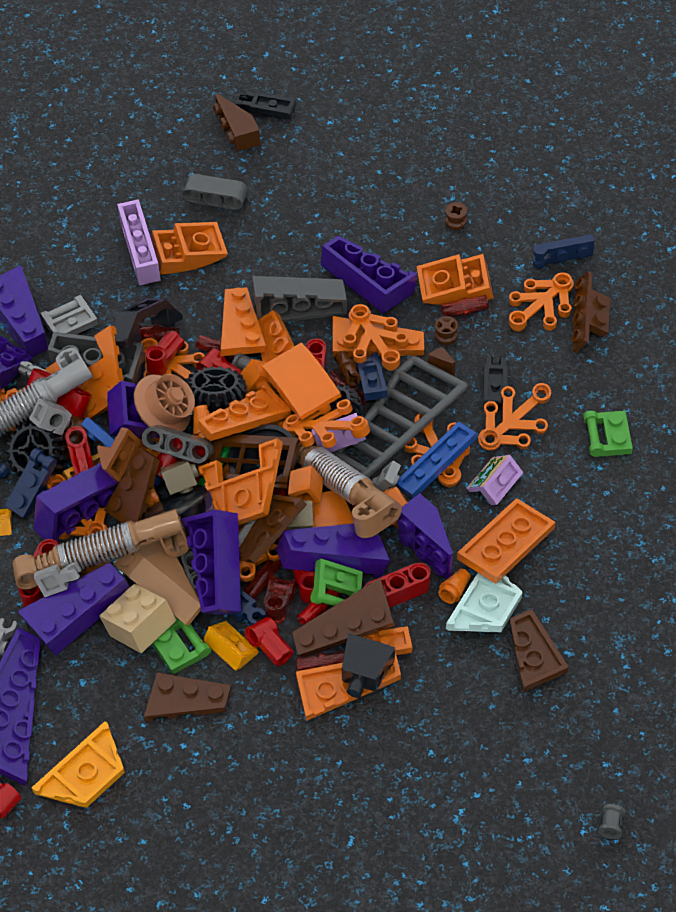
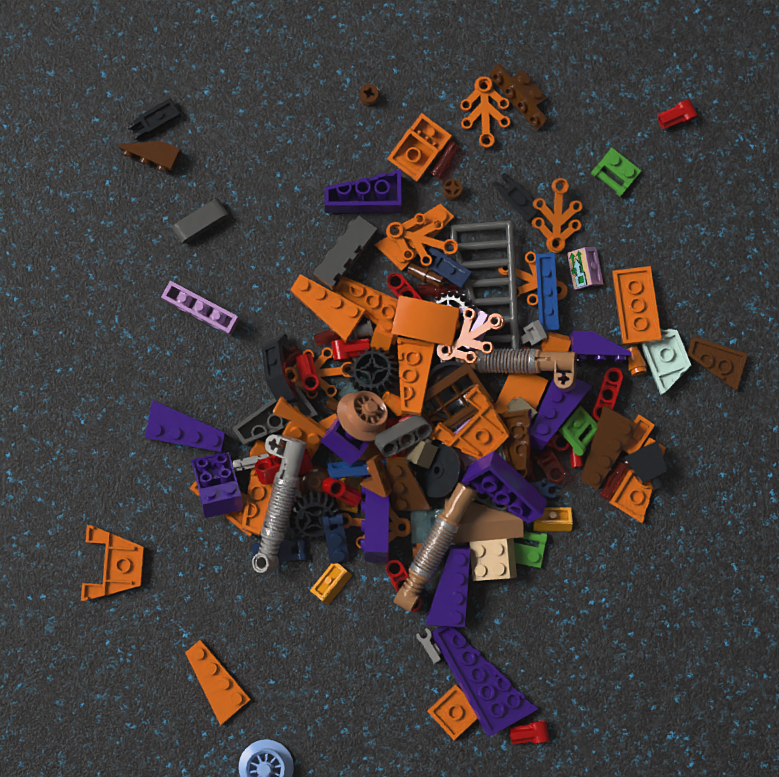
camera: 50 degrees left, 30 degrees up
(45, 410) = (308, 492): light grey brick -> none
(53, 580) = (433, 589): light grey plate -> none
(70, 317) = (223, 404): light grey plate -> none
(84, 771) = (561, 671): light orange wing -> none
(183, 695) = (563, 575): reddish brown wing -> none
(188, 246) = (231, 279): orange slope -> none
(266, 636) = (568, 497): red piece -> none
(306, 484) = (501, 387): orange brick -> none
(442, 360) = (475, 215): reddish brown slope -> none
(563, 250) = (462, 61): dark blue plate -> none

